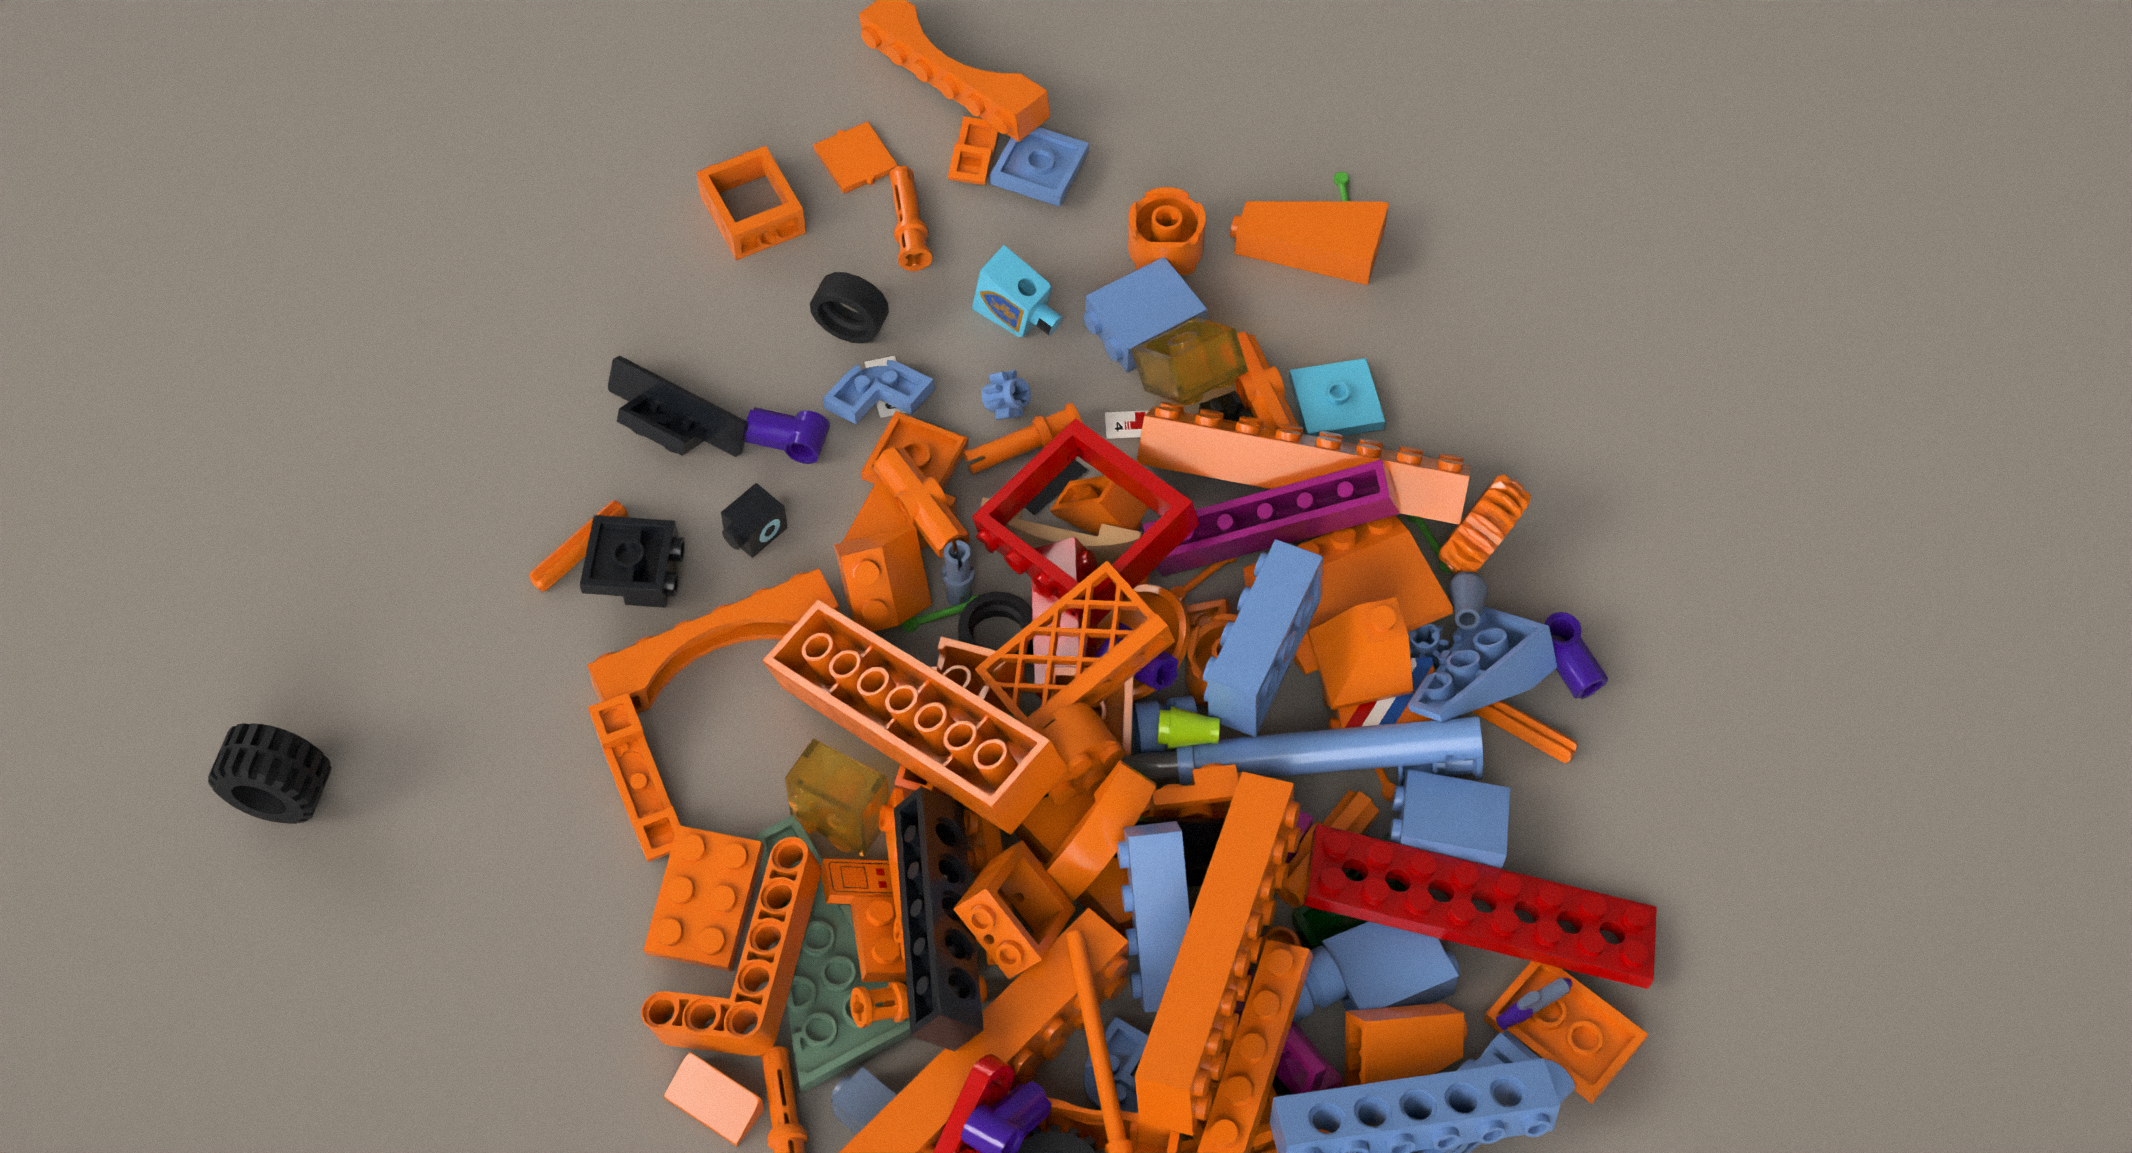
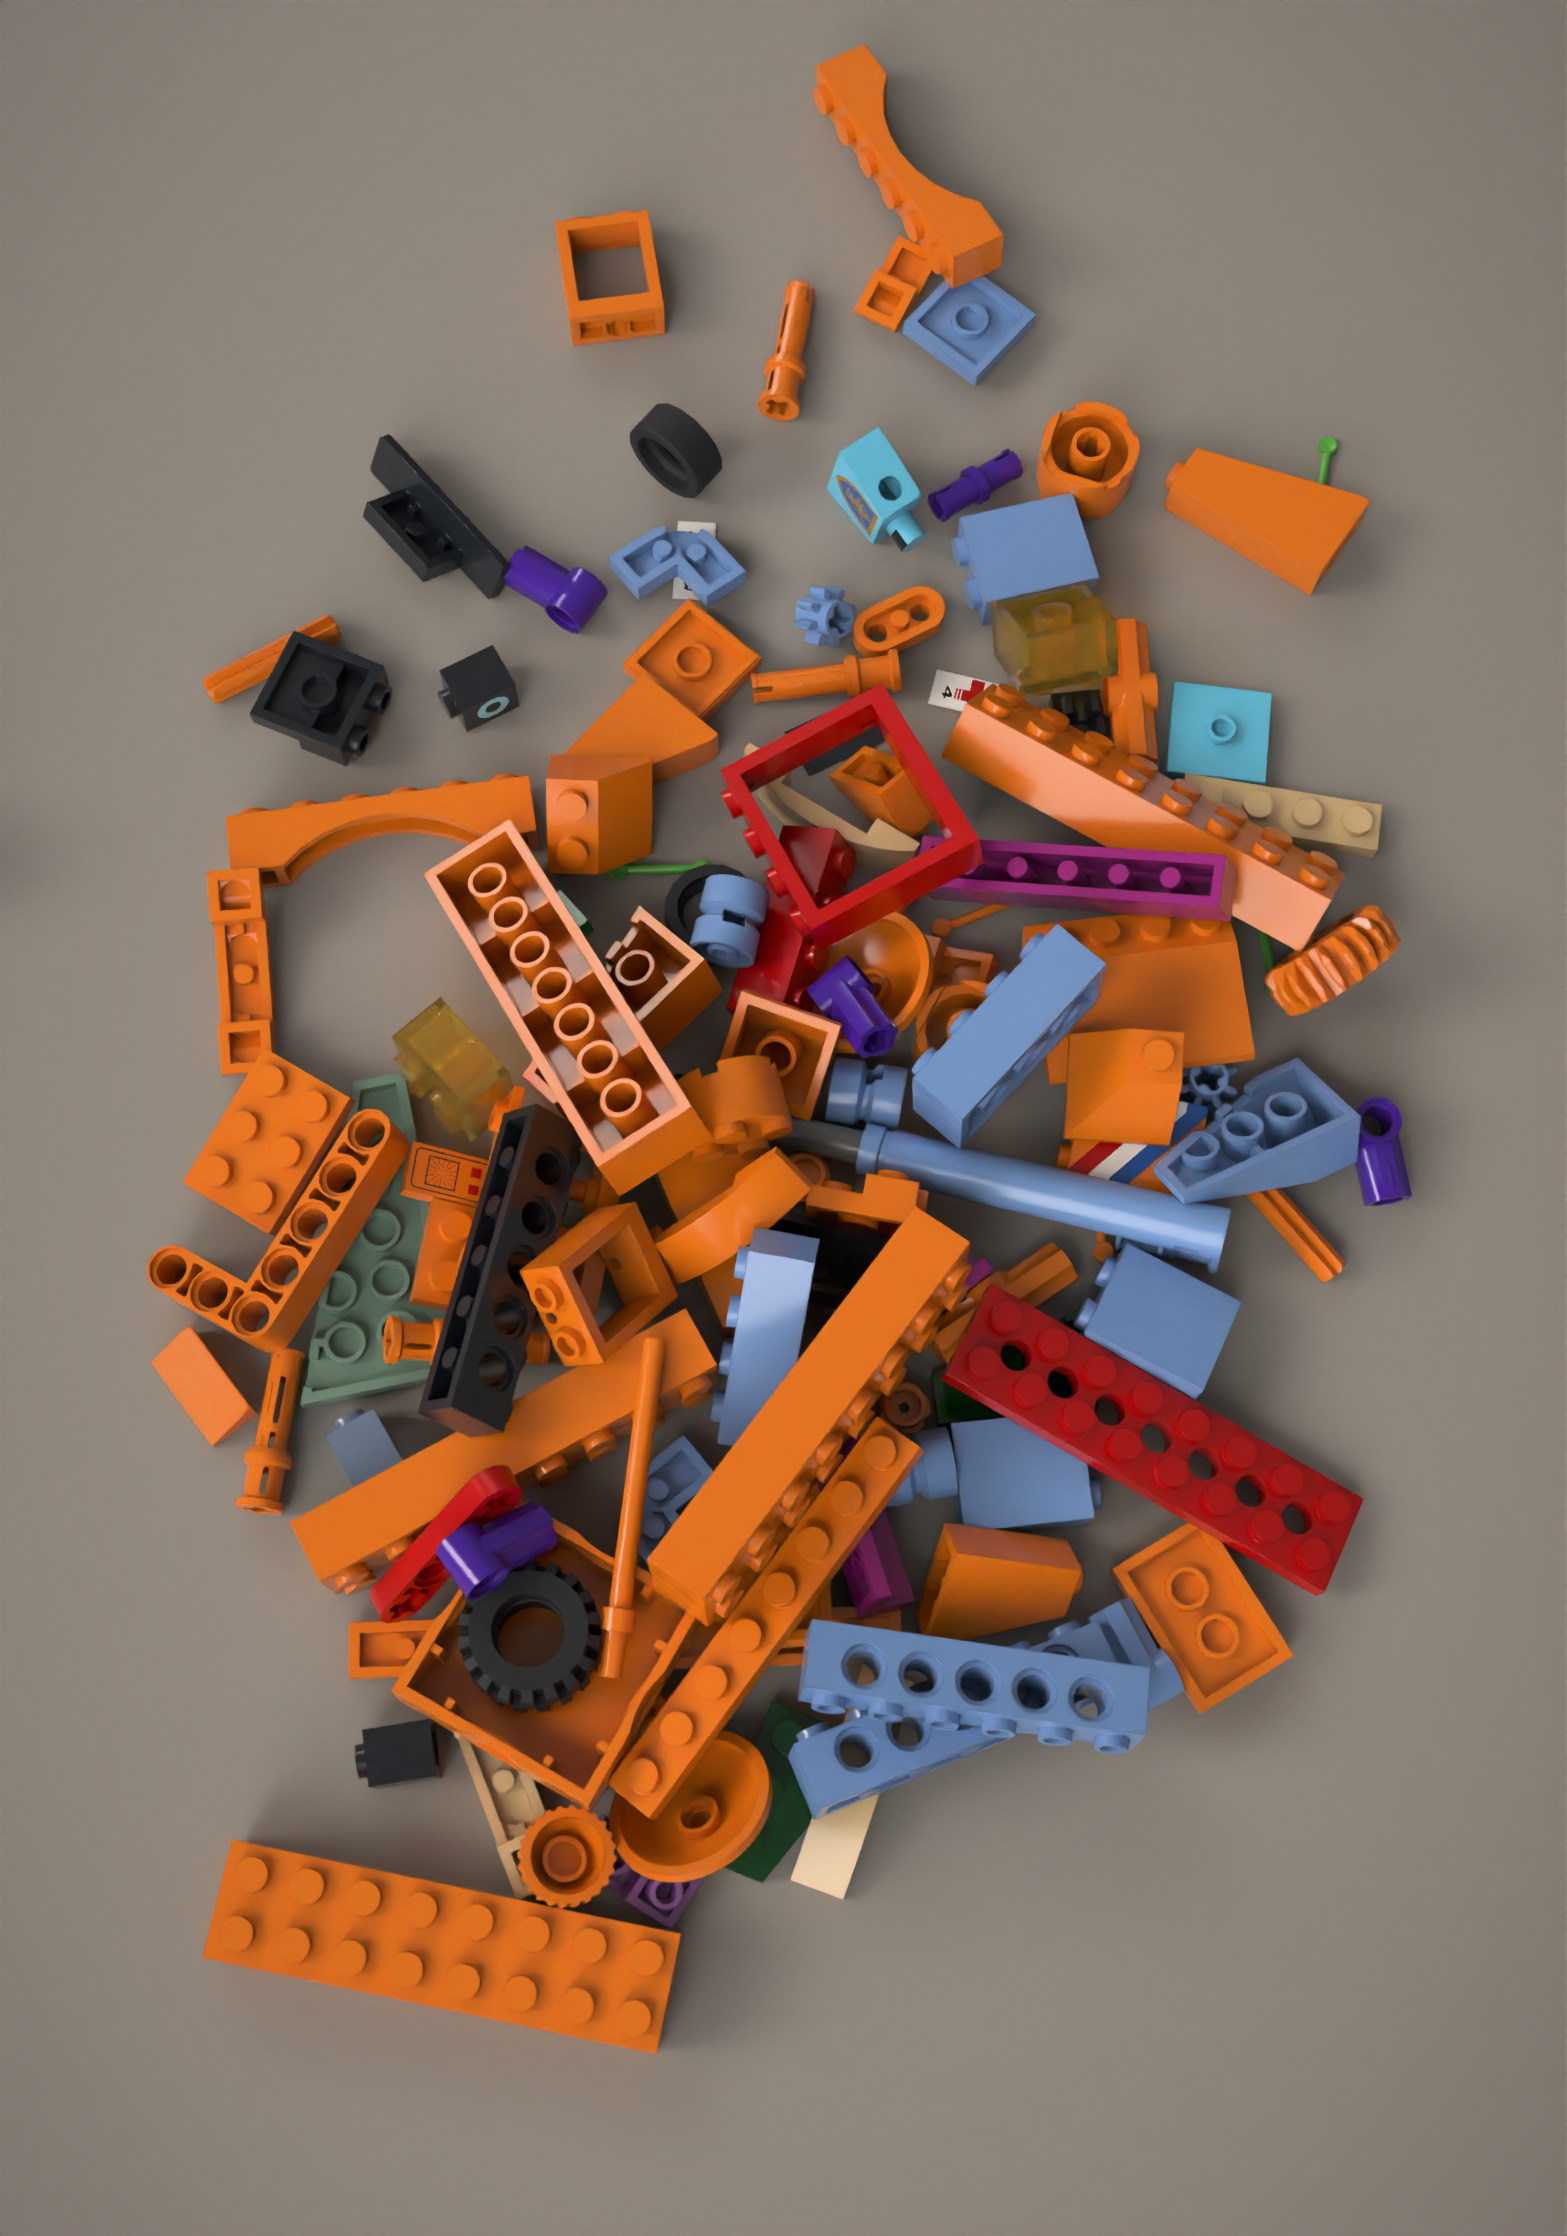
camera: 15 degrees right, 15 degrees up
(855, 157) = (755, 251): orange piece -> none
(919, 500) = (670, 730): orange piece -> none
(958, 573) = (686, 830): sand blue pin -> none
(1012, 611) = (731, 914): none -> medium blue wheel
(1060, 385) = (895, 622): none -> orange plate
(1086, 274) = (975, 485): none -> dark purple pin
(1103, 674) = (801, 1024): orange fence -> none
(1186, 728) = (880, 1115): lime cone -> none
(1448, 435) = (1306, 817): none -> tan plate
(1467, 596) = (1278, 1044): sand blue cone -> none
(1534, 1002) = (1172, 1577): sand blue piece -> none

